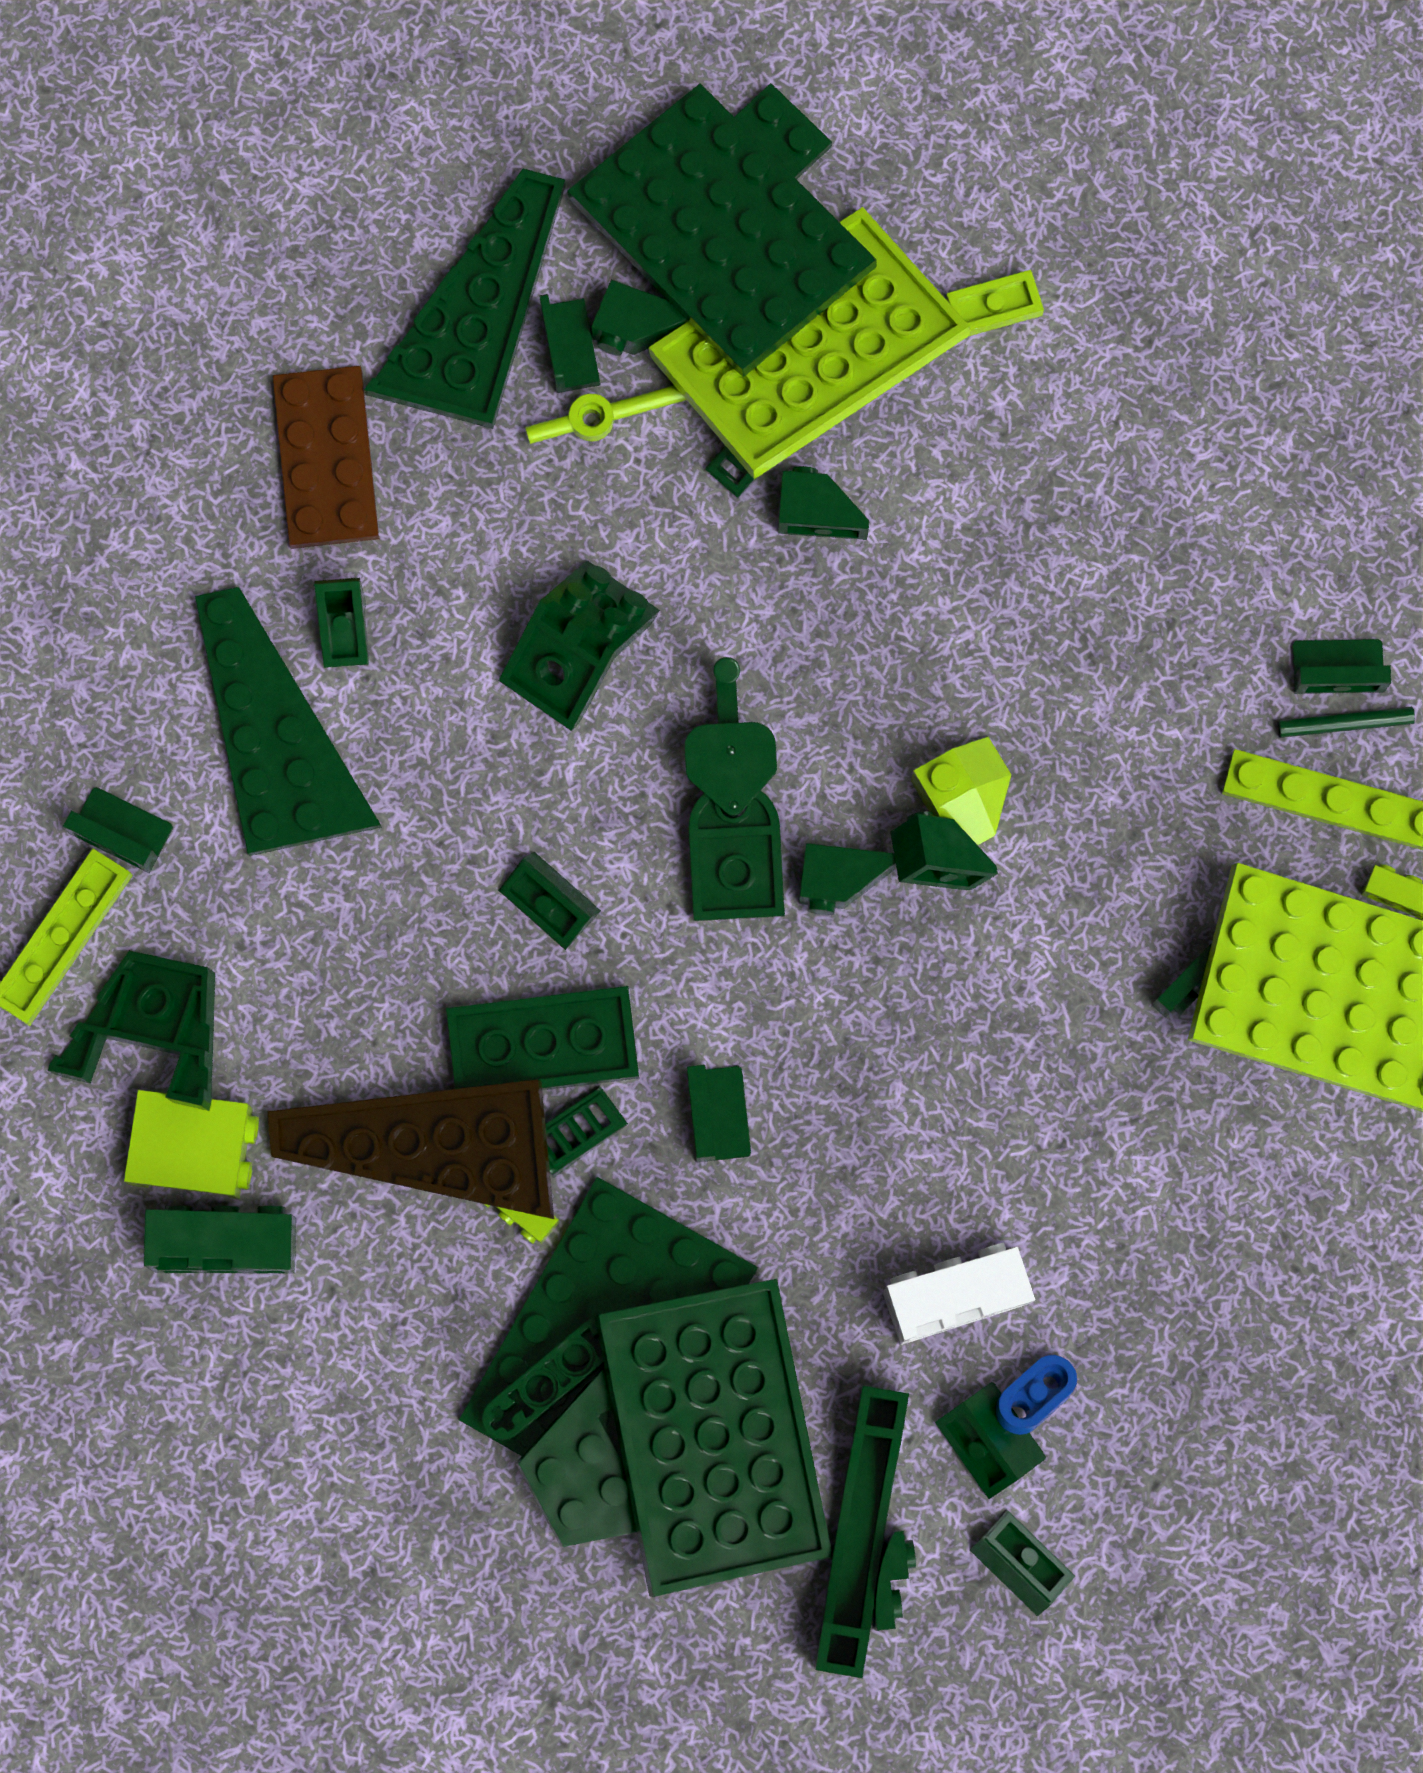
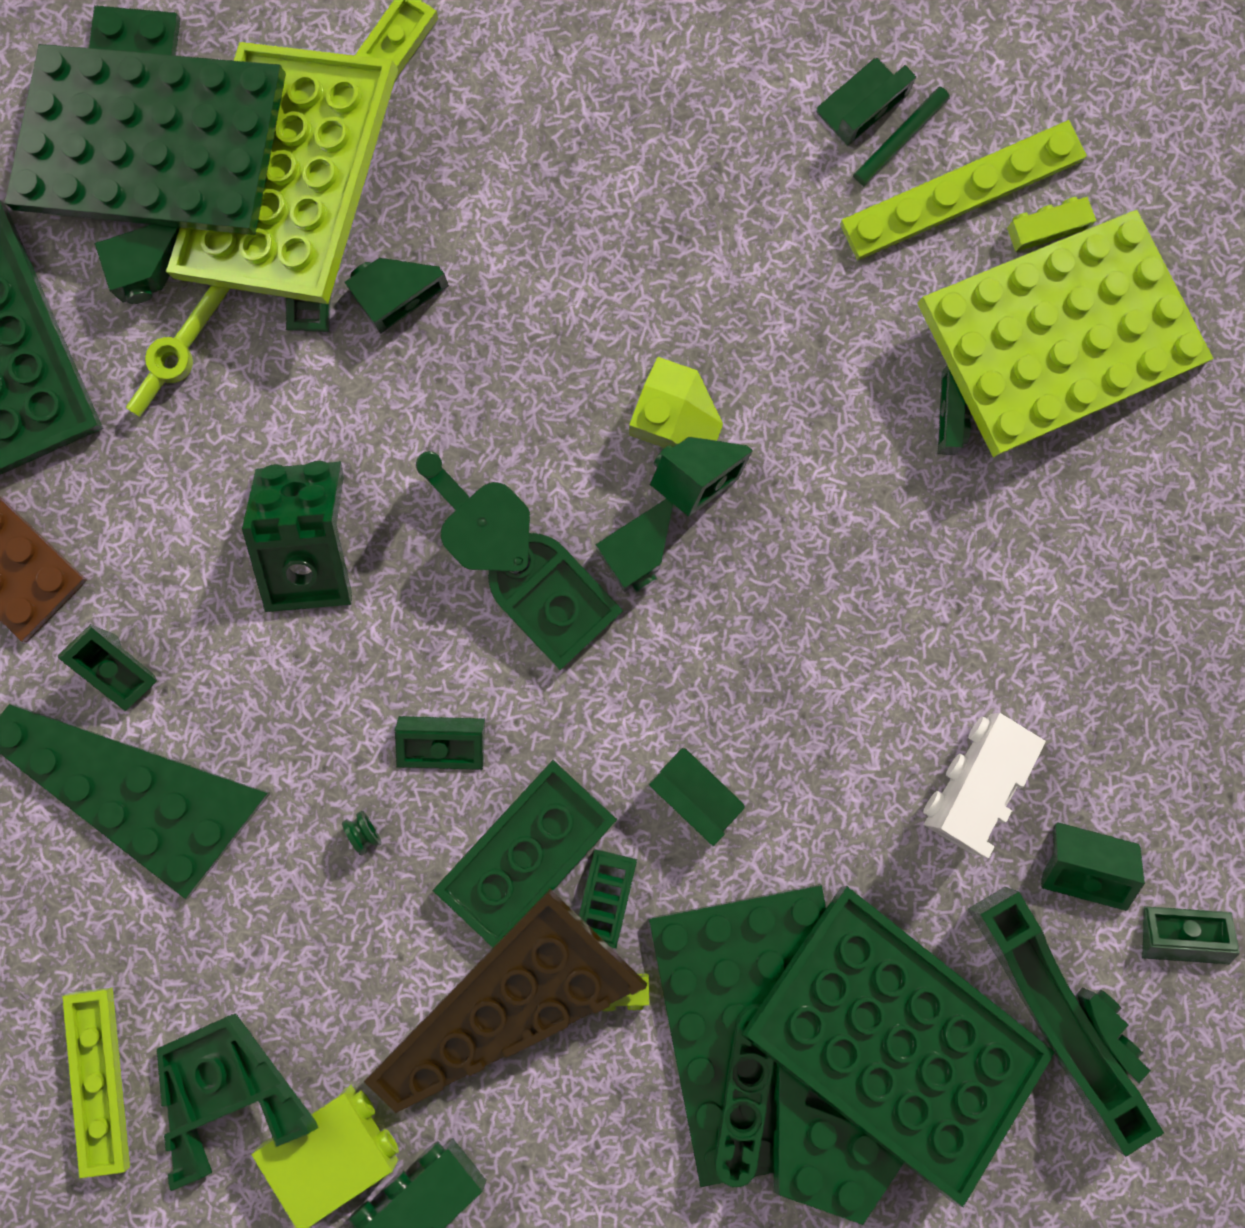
camera: 40 degrees left, 5 degrees up
(120, 829) = (72, 962): dark green panel -> none
(428, 917) = (361, 833): none -> dark green bush
(570, 344) = (107, 319): dark green panel -> none
(1034, 1396) = (1100, 810): blue plate -> none

